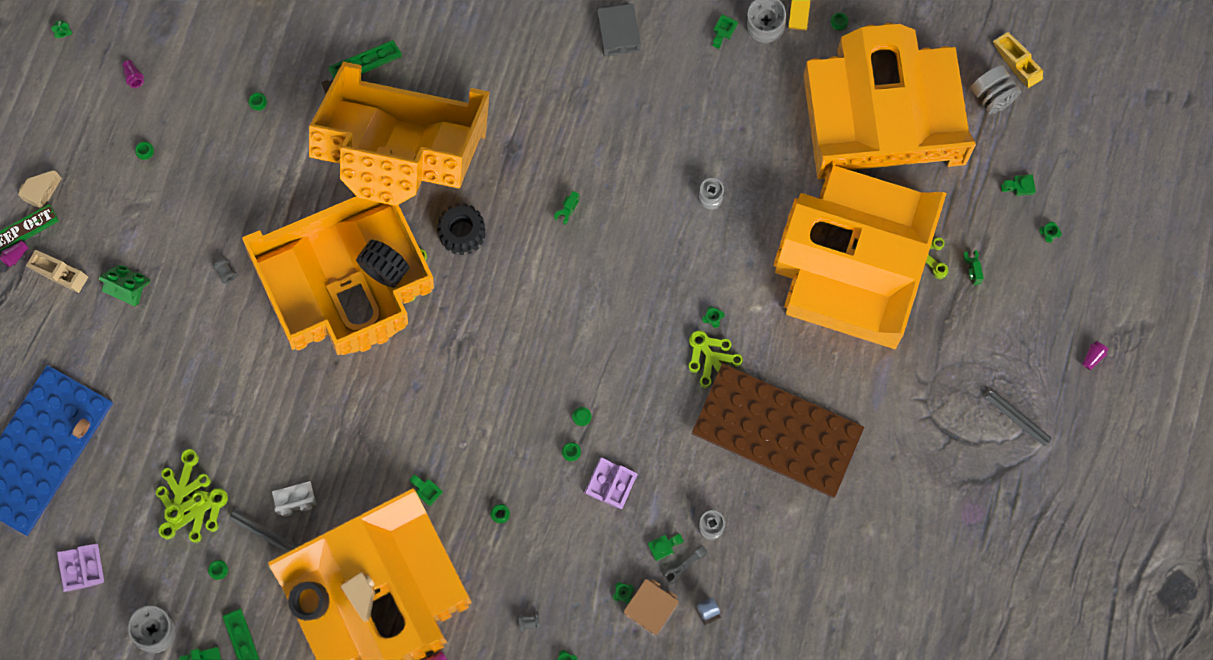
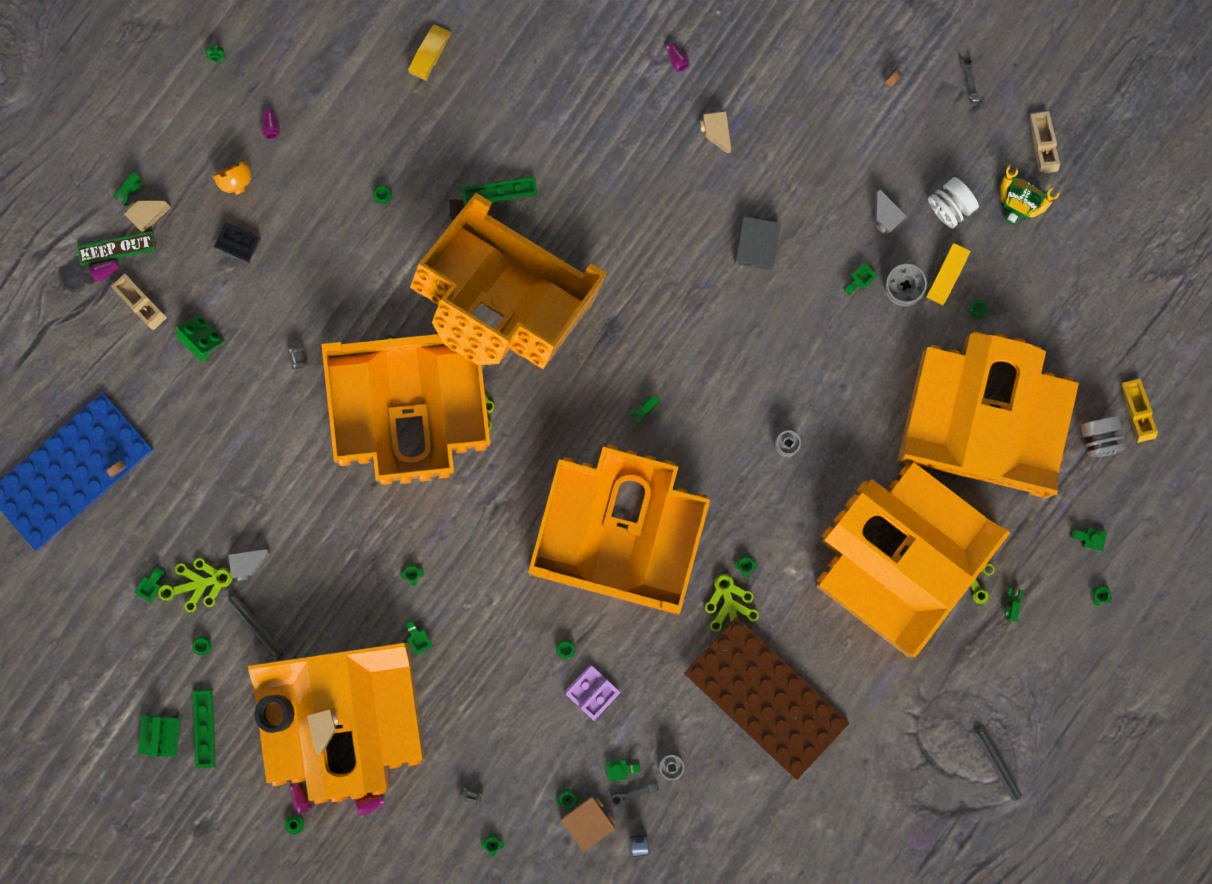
camera: 20 degrees right, 10 degrees up
(16, 170) = (131, 185): none -> green plate
(80, 567) = (76, 599): lavender slope -> none
(113, 130) = (234, 178): none -> light orange cylinder
(134, 187) = (237, 242): none -> black plate
(144, 150) = (258, 207): green plate -> none
(148, 619) = (113, 685): light grey wheel -> none
(149, 531) = (148, 587): none -> green plate
(182, 489) = (191, 558): lime plant -> none
(237, 475) = (247, 563): none -> light grey slope
(294, 498) = (293, 602): white bracket -> none
(382, 263) = (447, 411): black tyre -> none
(400, 427) = (407, 574): none -> green plate
(456, 215) = (525, 382): black tyre -> none
(500, 507) = (474, 689): green plate -> none
(557, 352) = (635, 564): none -> light orange panel
(581, 416) = (587, 619): green plate -> none
(1094, 355) = (1095, 731): magenta cone -> none

